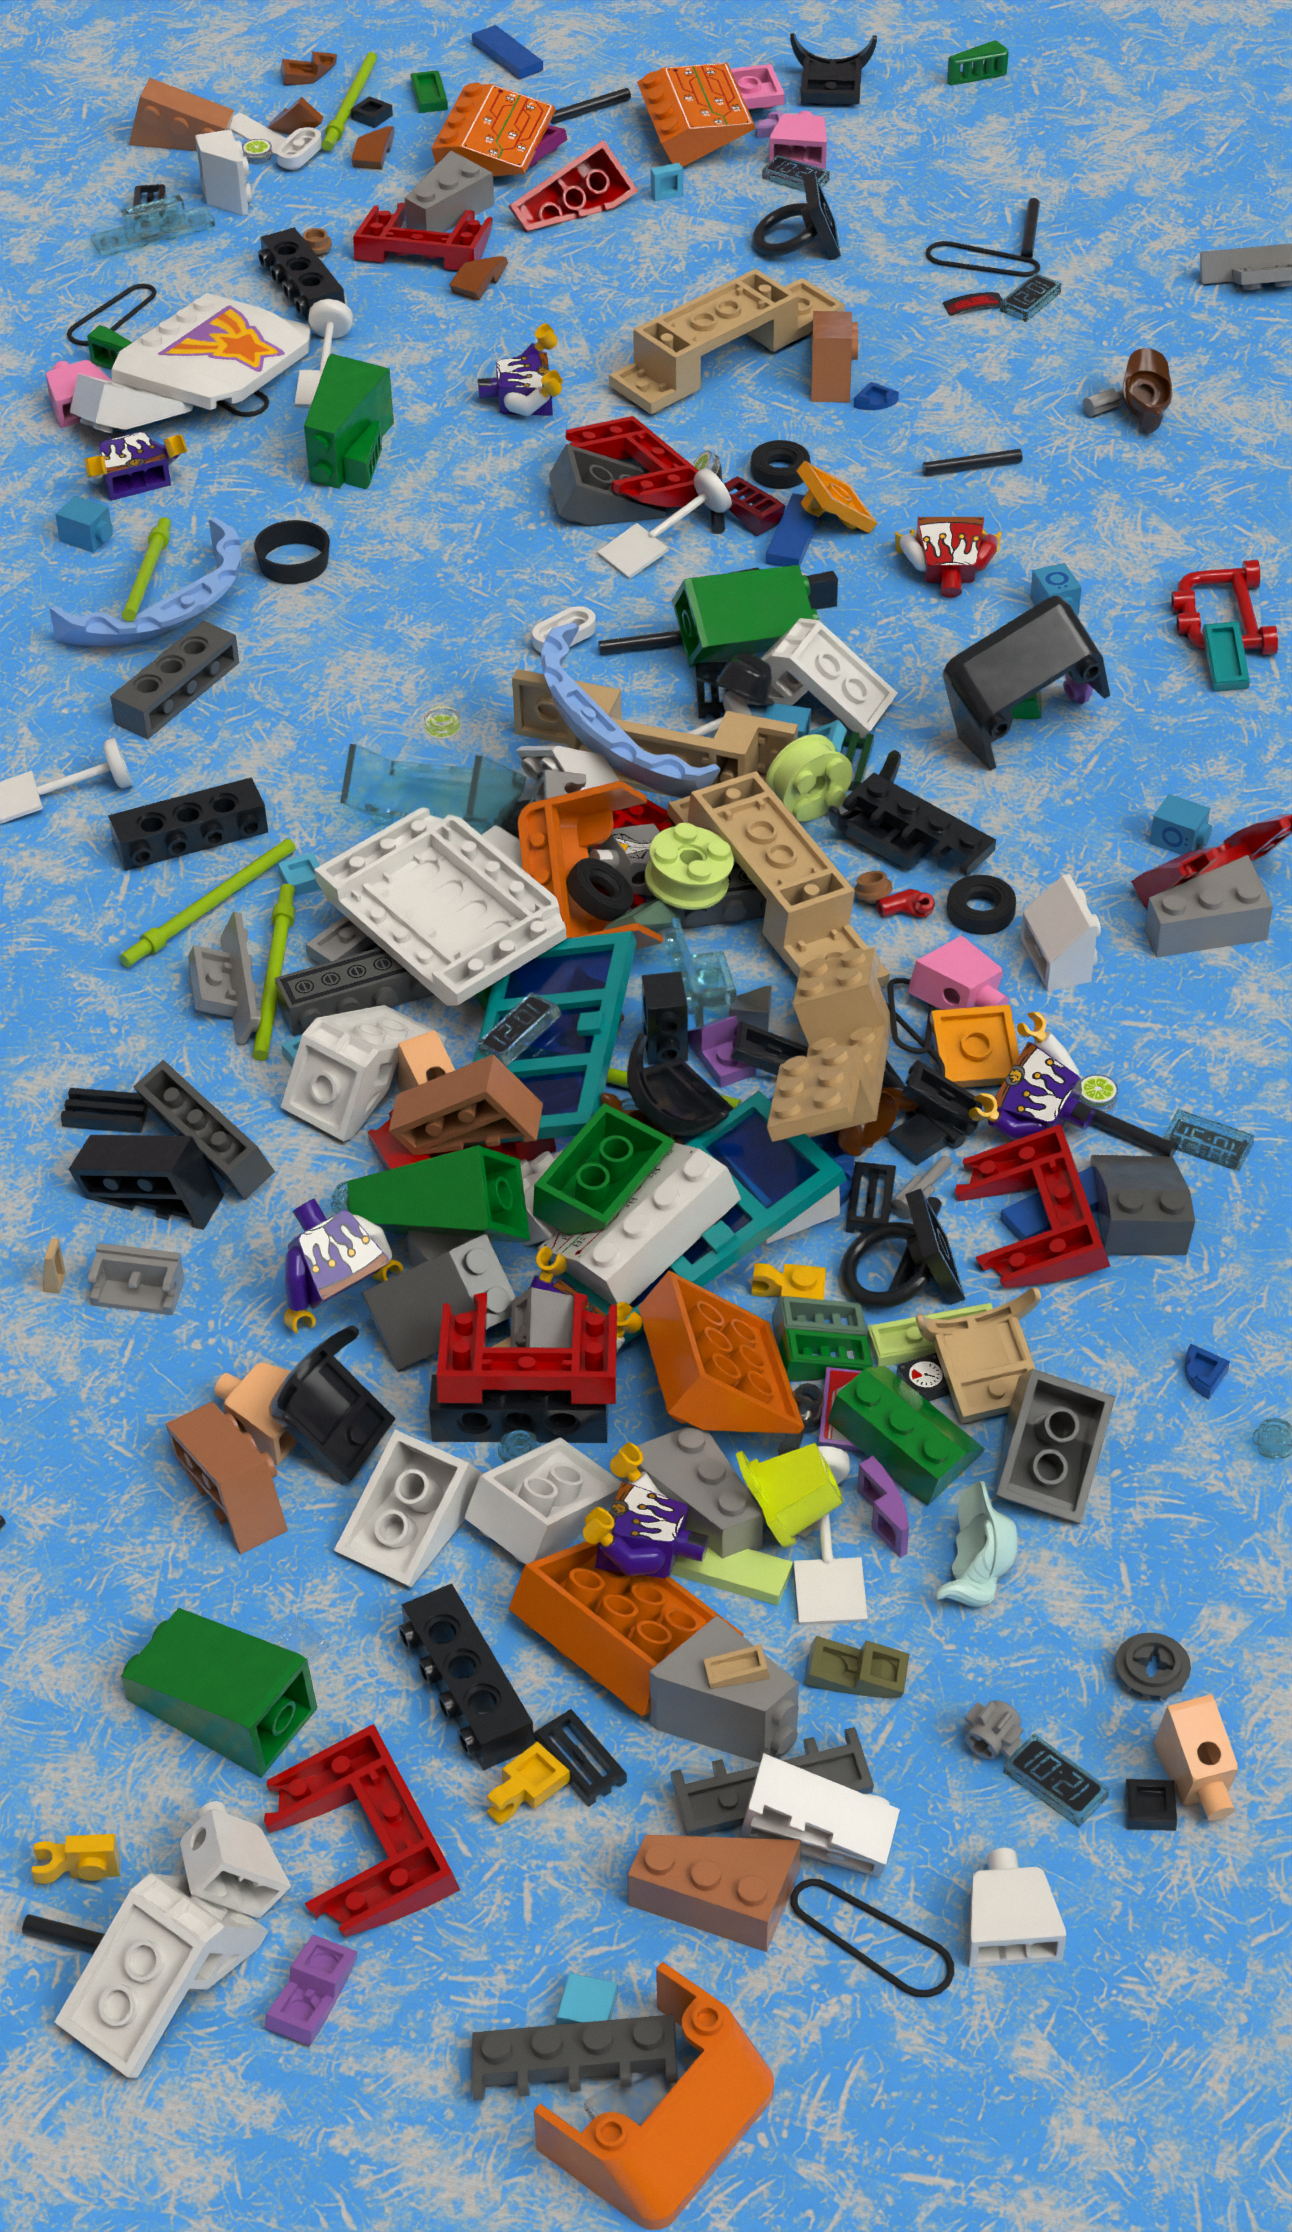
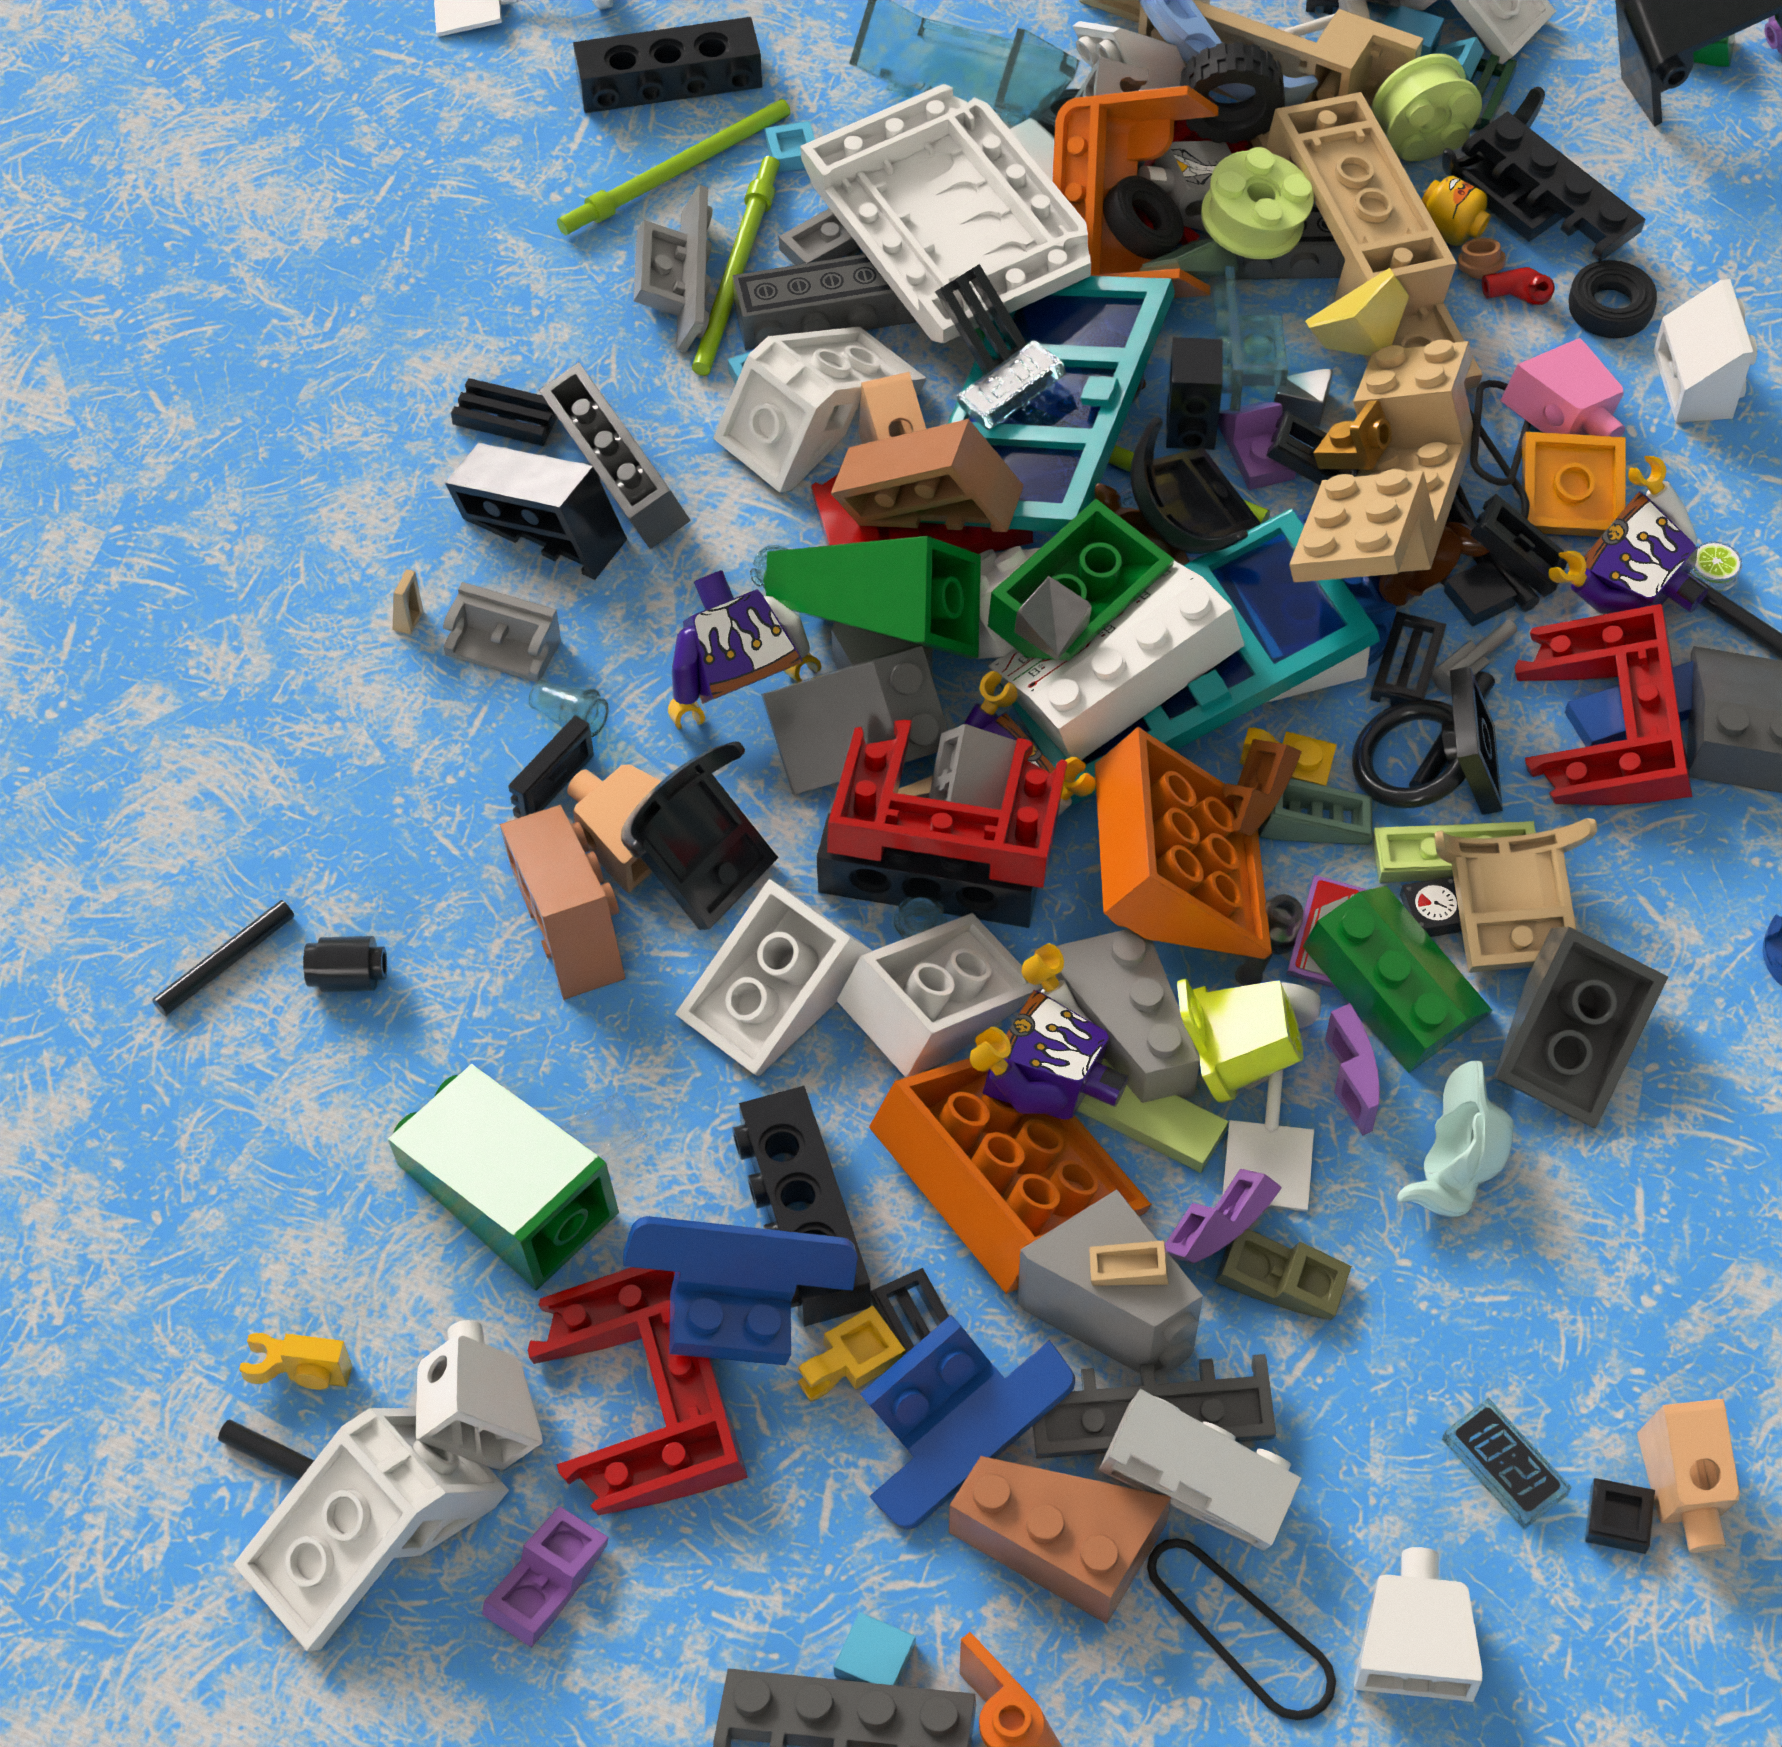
camera: 10 degrees right, 10 degrees up
(56, 1551) = (344, 964): none -> black brick
(198, 1376) = (552, 768): none -> black tile
(204, 1328) = (564, 701): none -> clear light blue cone
(427, 1735) = (736, 1282): none -> blue plate
(486, 980) = (996, 309): none -> black tile
(587, 1196) = (1052, 618): none -> flat silver slope
(612, 1805) = (951, 1410): none -> blue plate
(657, 761) = (1241, 65): none -> black tyre
(772, 1302) = (1261, 783): none -> dark orange slope
(788, 942) = (1363, 318): none -> light yellow slope
(795, 1640) = (1209, 1229): none -> medium lavender slope
(799, 1345) = (1297, 871): green slope -> none
(801, 1035) = (1356, 442): none -> pearl gold bracket
(848, 852) = (1457, 209): none -> yellow head
(993, 1730) = (1438, 1386): light grey gear -> none
(1172, 1662) = (1679, 1327): dark grey gear -> none

